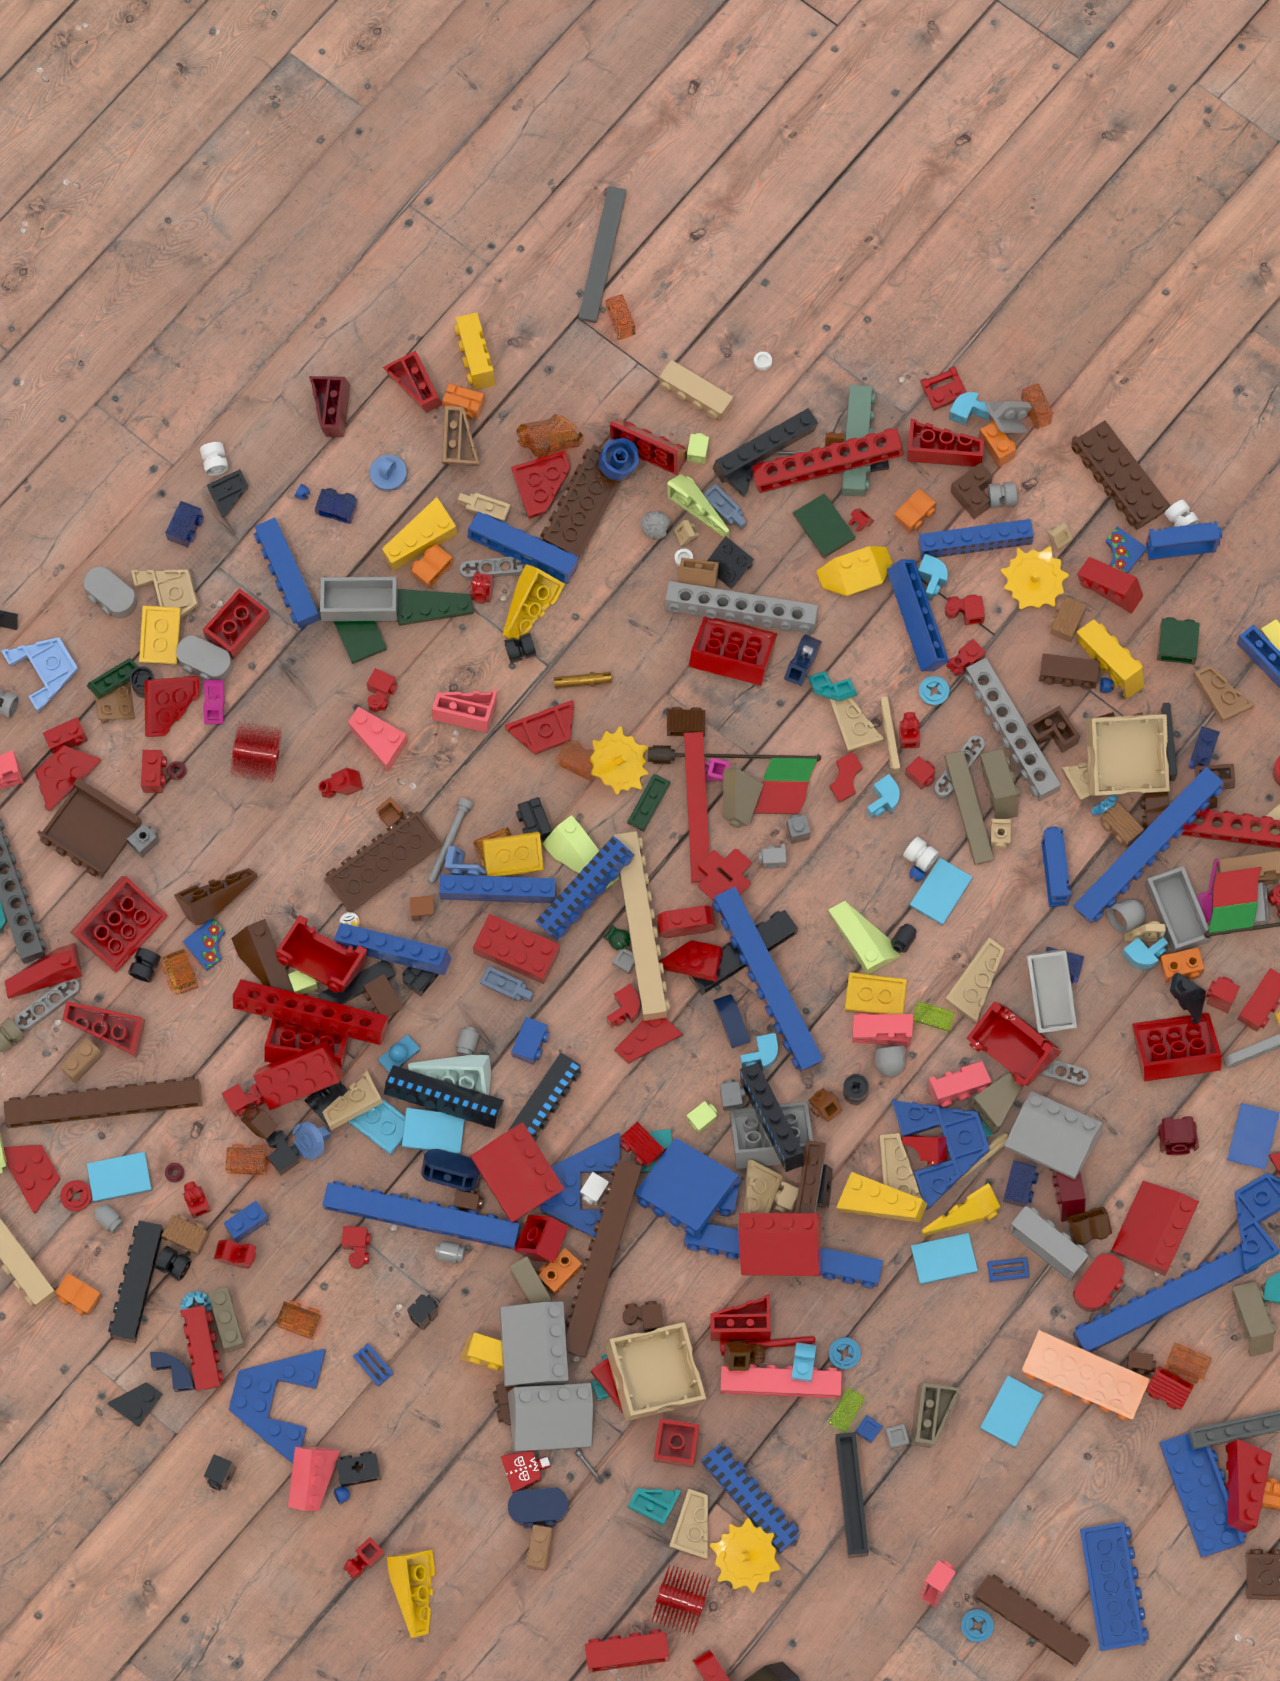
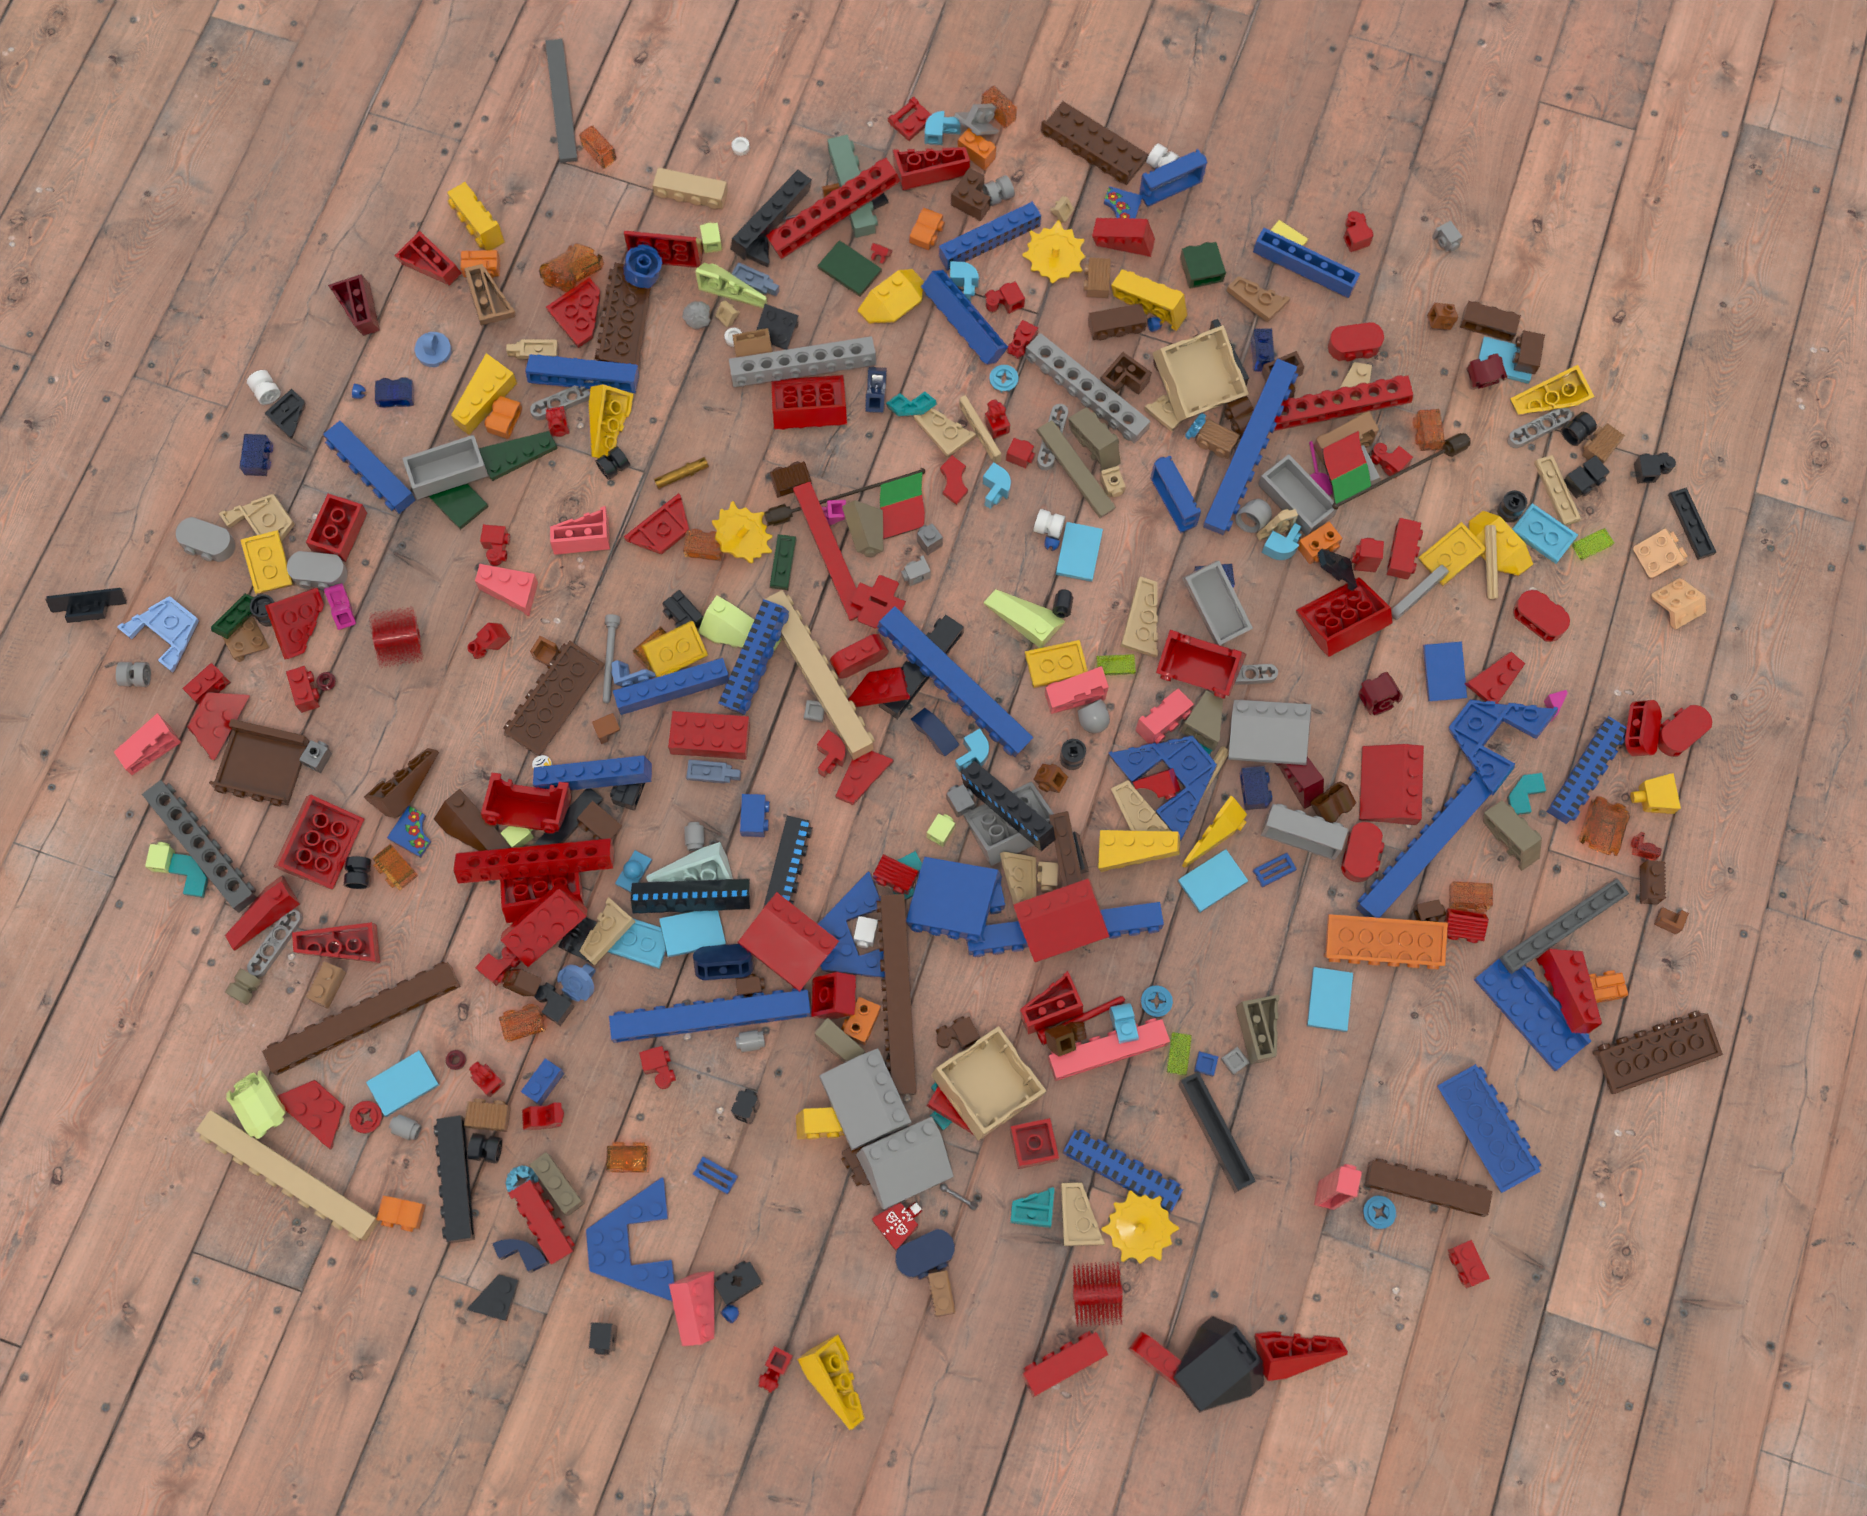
camera: 25 degrees left, 0 degrees up
(617, 938) = (800, 693): dark green animal -> none

